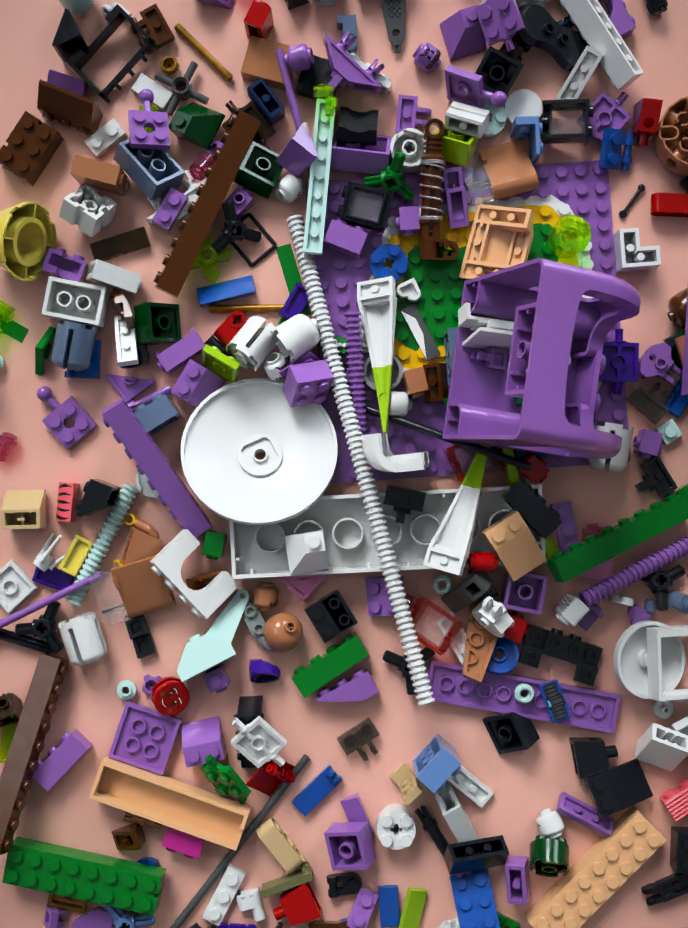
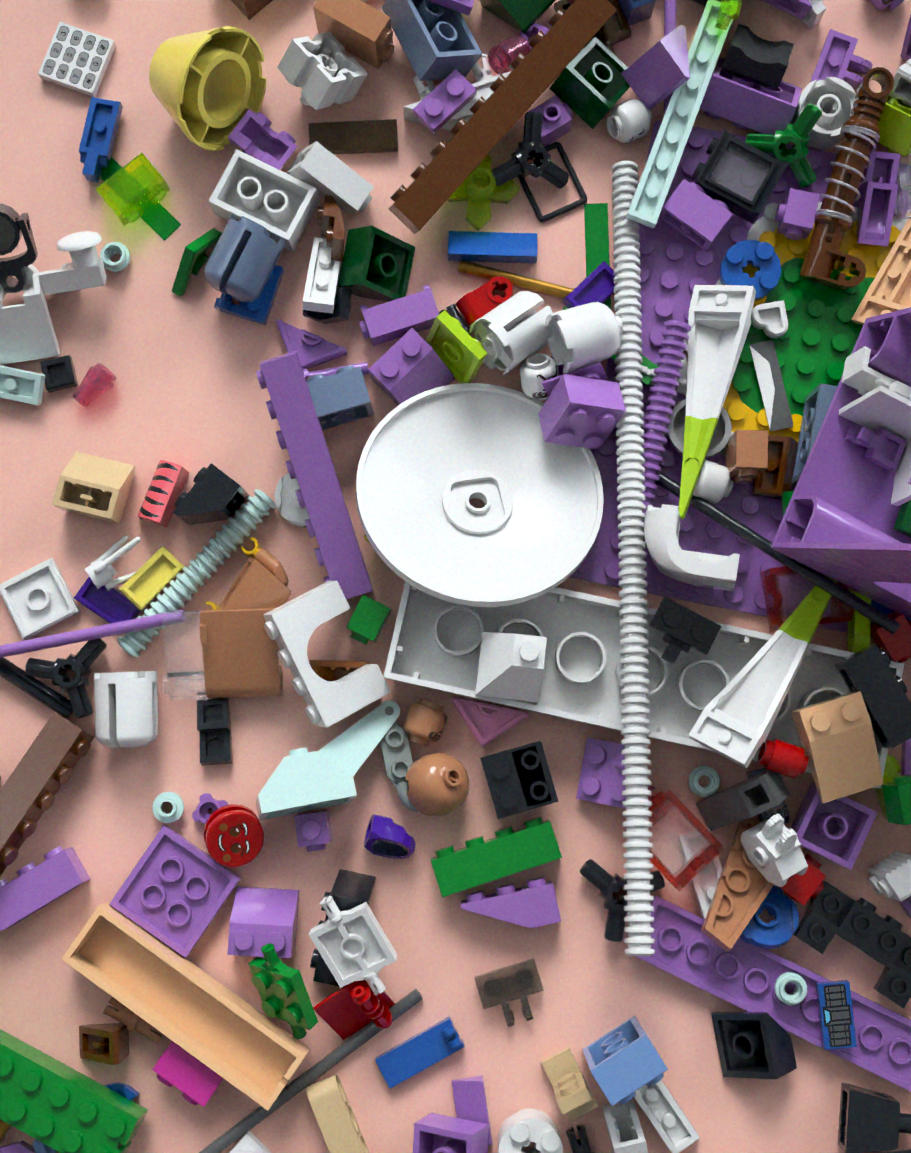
camera: 20 degrees right, 5 degrees down
(56, 420) = (184, 365): medium lavender plate -> none

